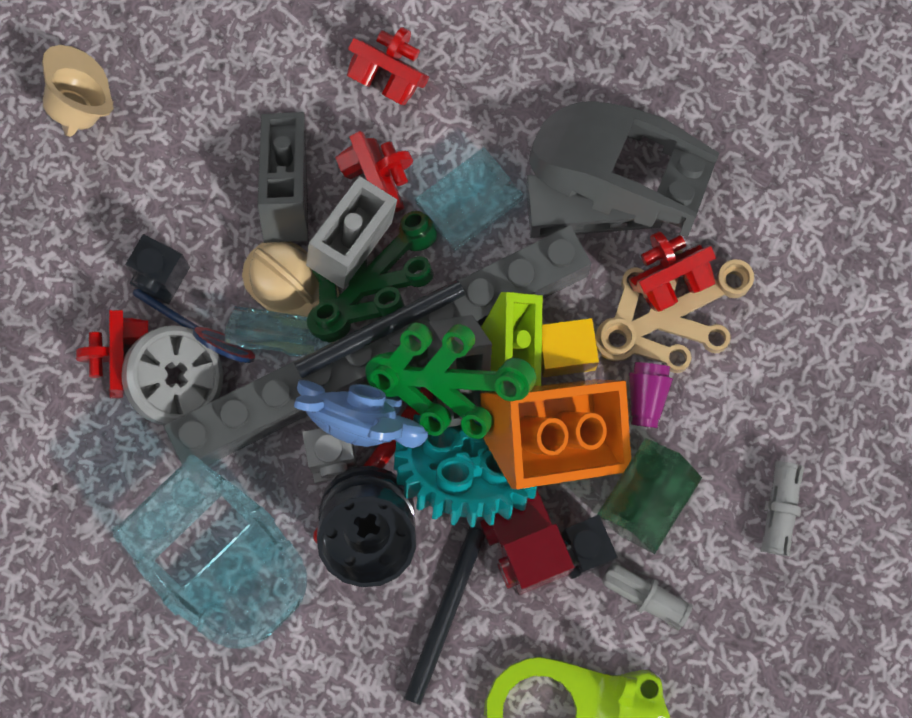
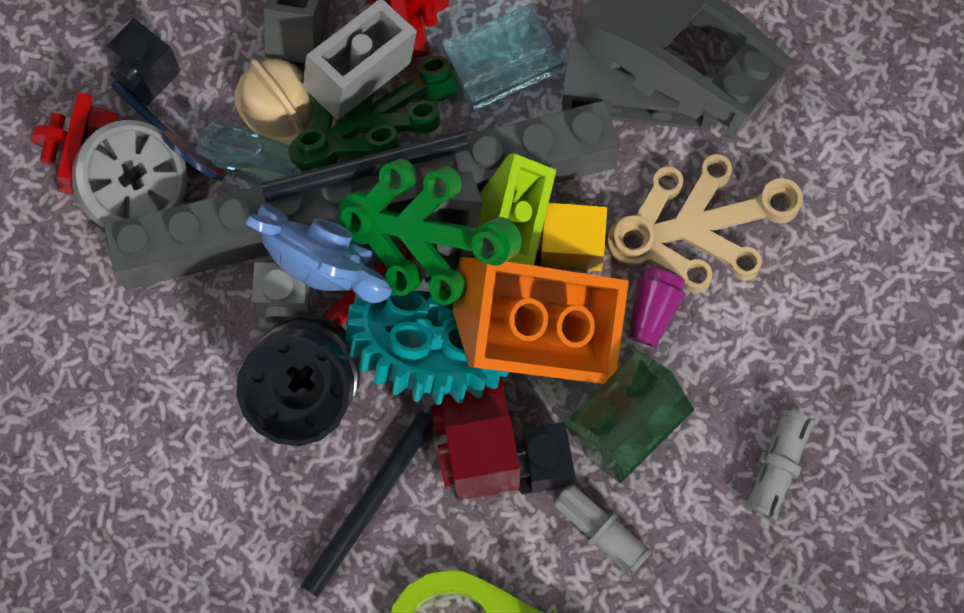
camera: 15 degrees right, 5 degrees down
(234, 587) = (151, 425): clear light blue slope -> none
(691, 264) = (688, 186): red hips -> none

